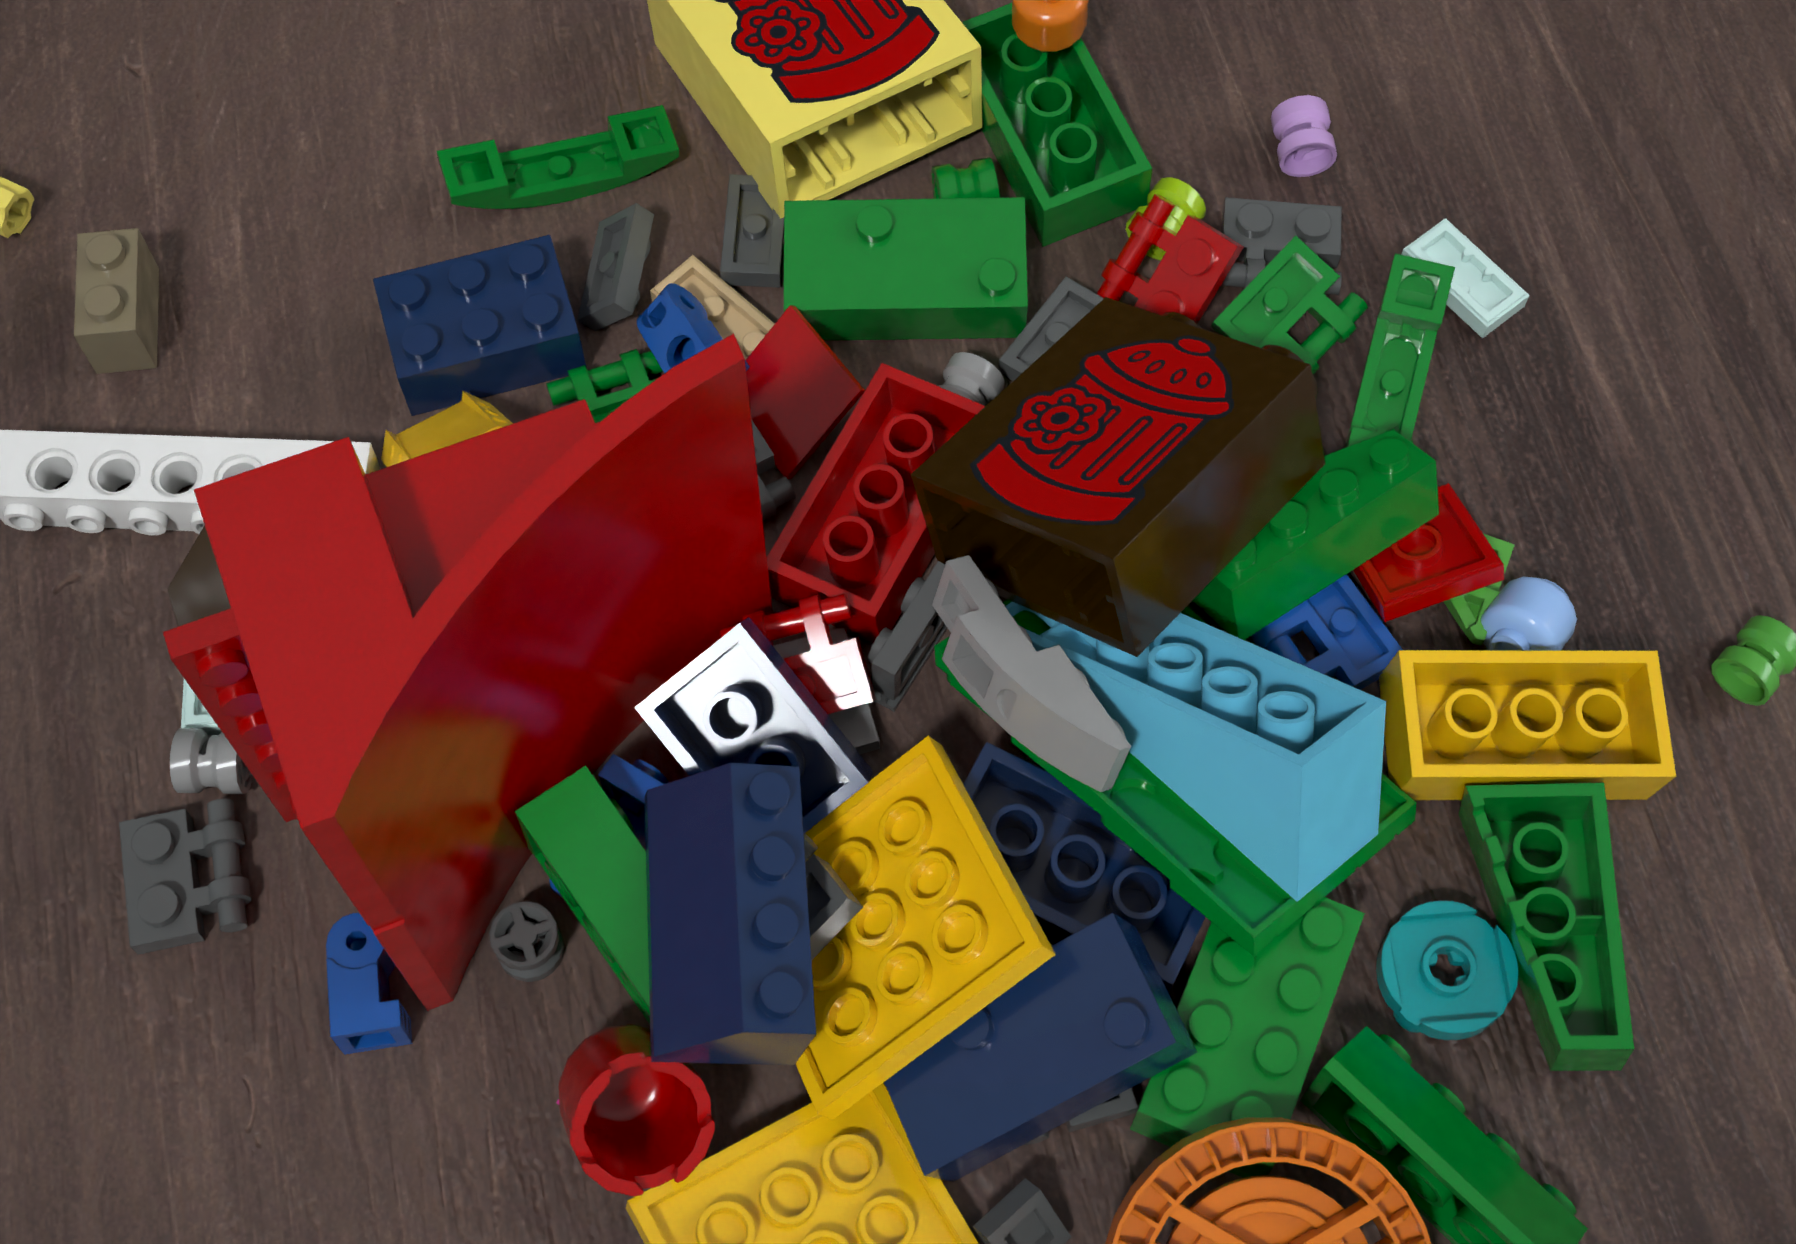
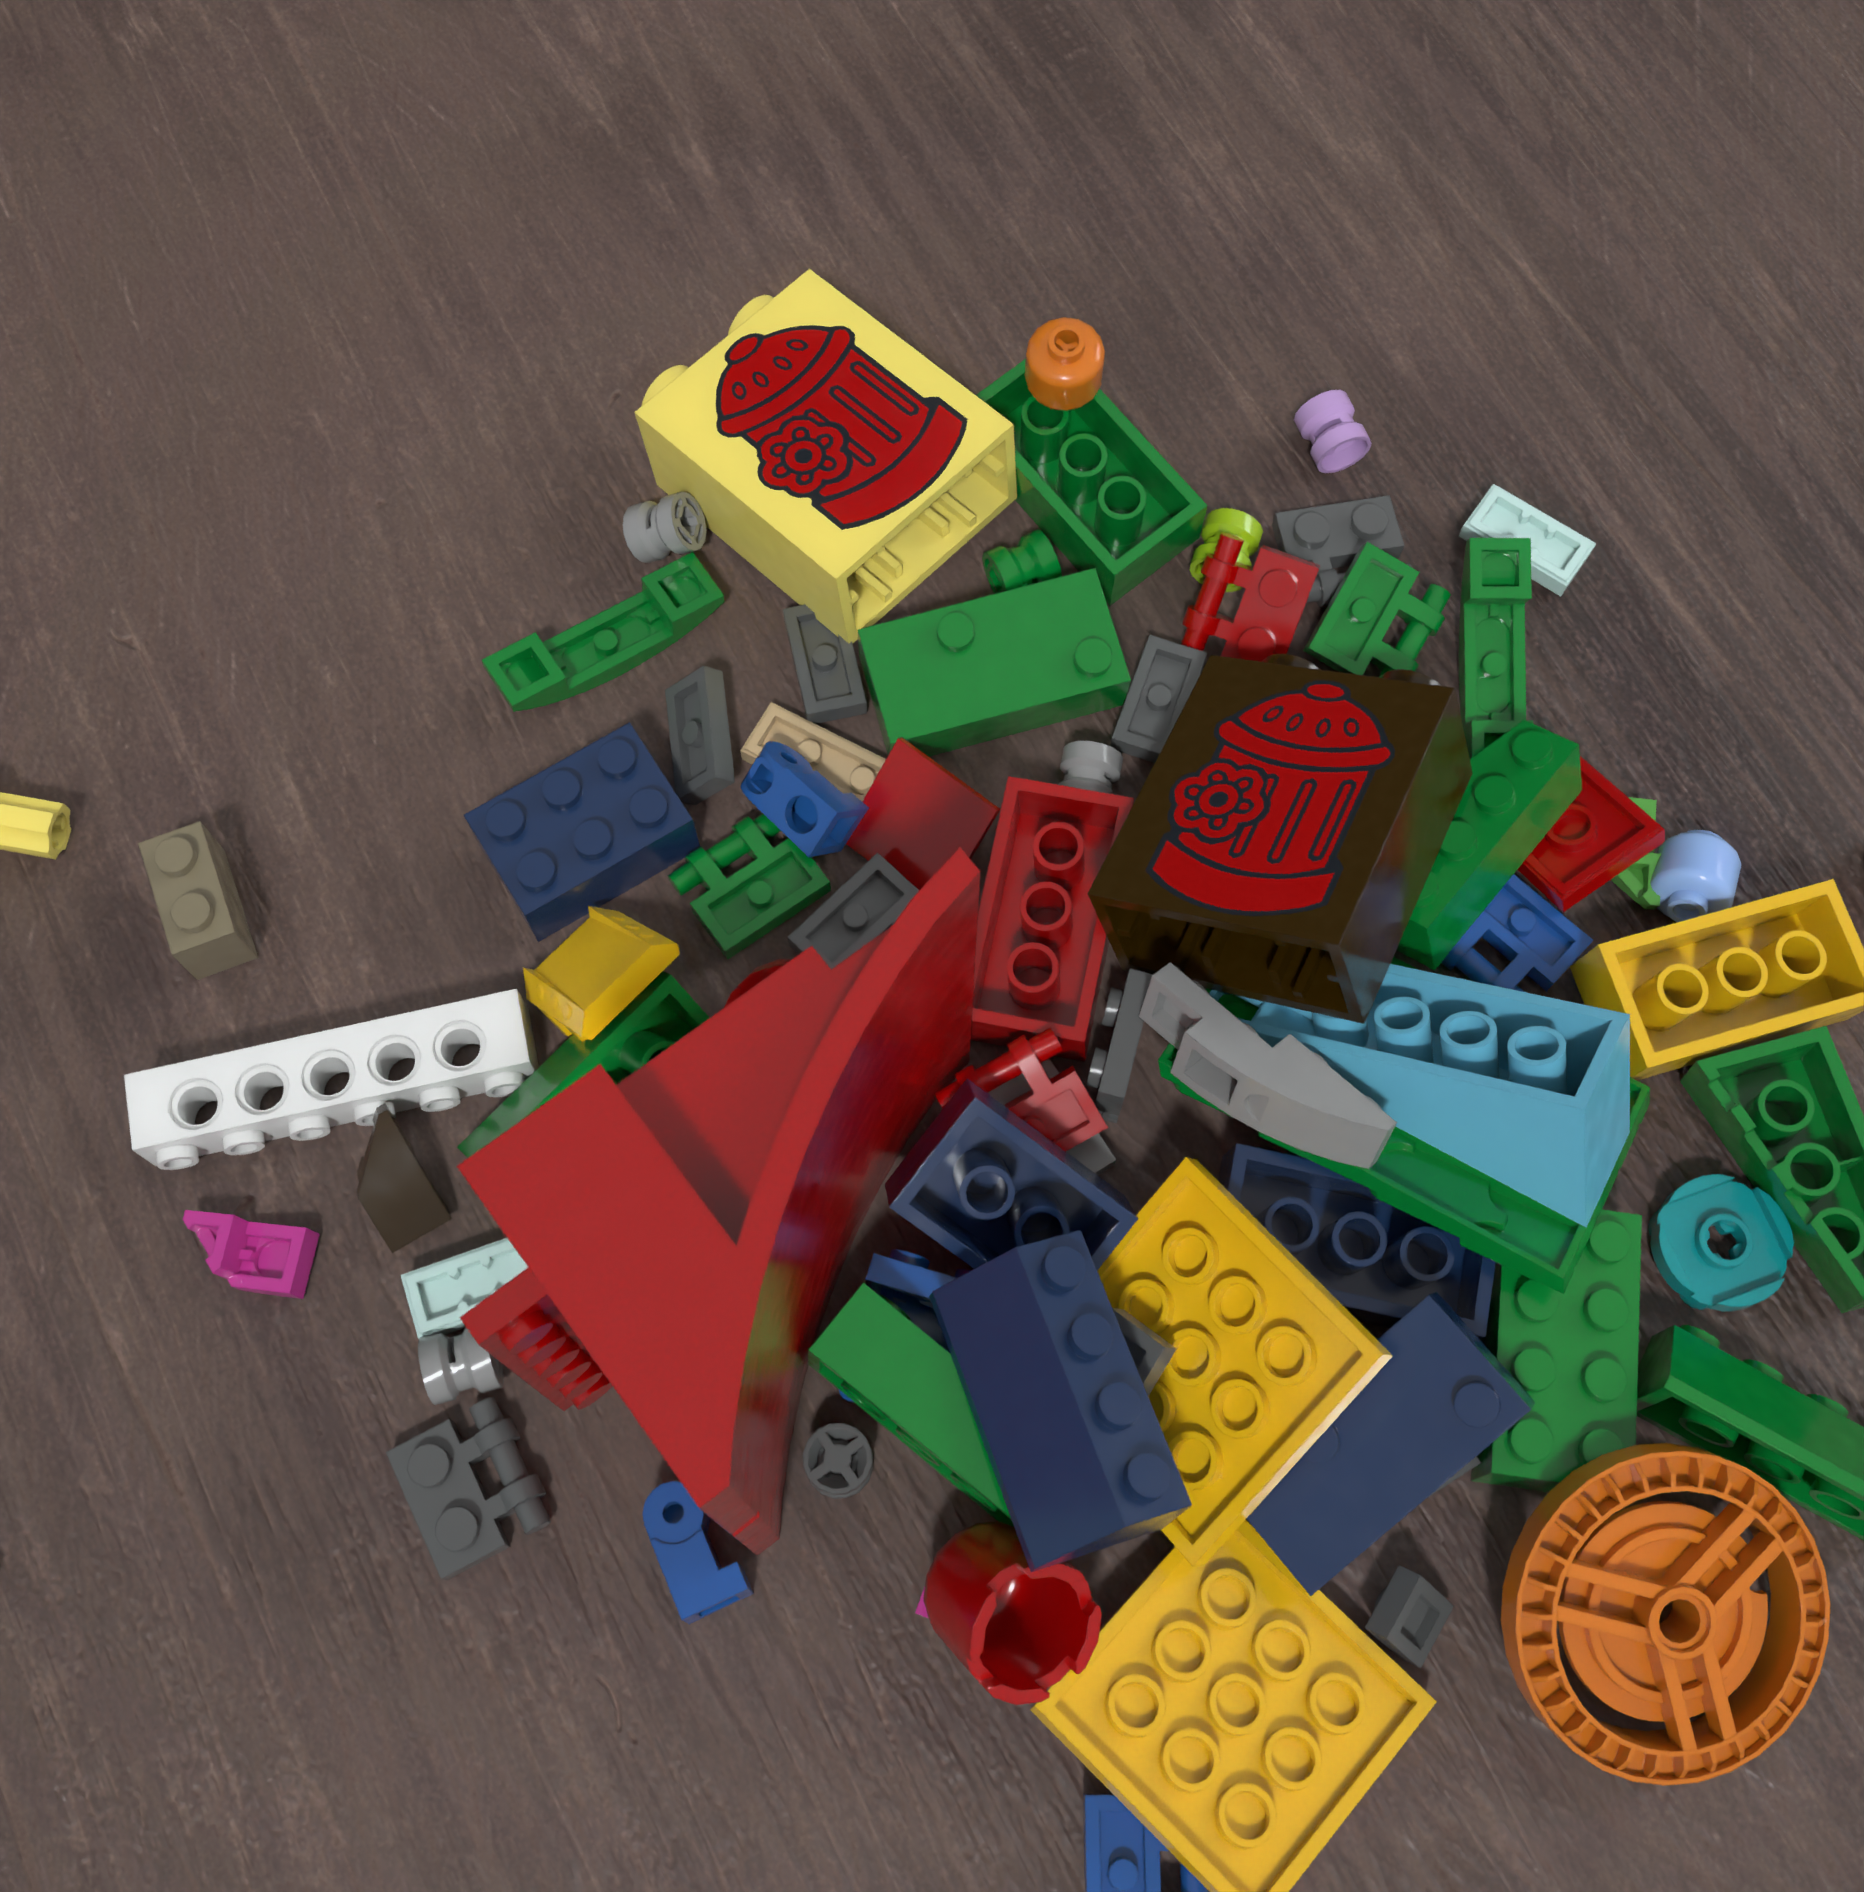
camera: 15 degrees left, 5 degrees up
(63, 621) = (256, 1254): none -> dark pink slope
(653, 77) = (659, 528): none -> light grey wheel

